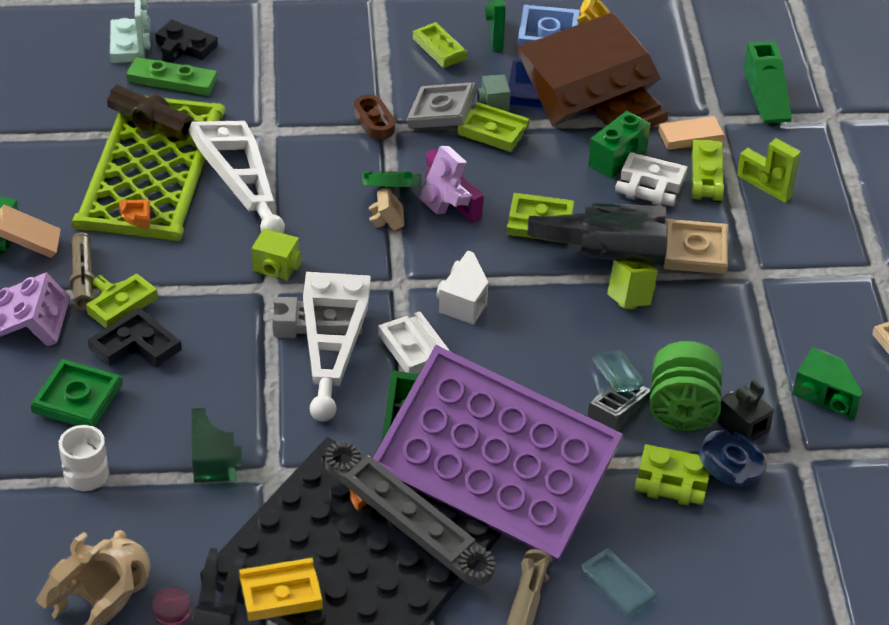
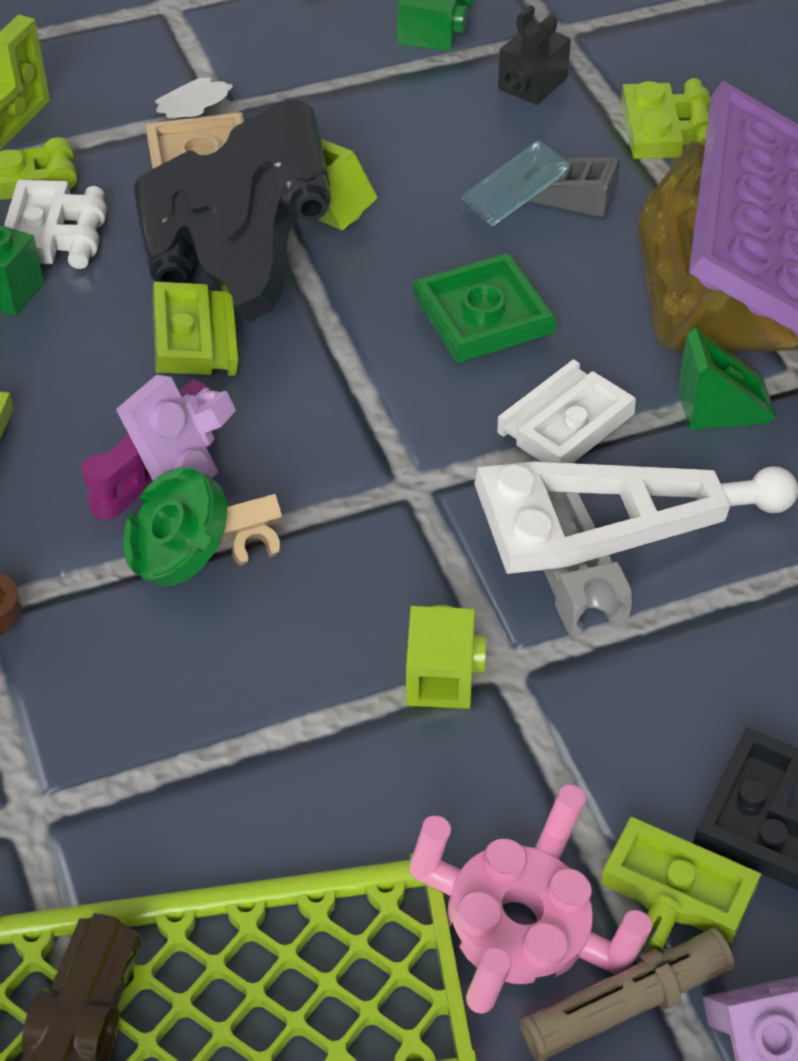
camera: 105 degrees left, 5 degrees up
(135, 233) = (536, 879): none -> bright pink plate
(136, 212) = (416, 943): orange tile -> none
(236, 135) = (127, 873): white plate -> none
(465, 290) = (412, 375): white slope -> none
(514, 333) = (483, 307): none -> green plate
(686, 386) = (542, 94): bright green wheel -> none
(732, 459) = (619, 66): dark blue tile -> none
(760, 255) = (192, 98): none -> white sticker

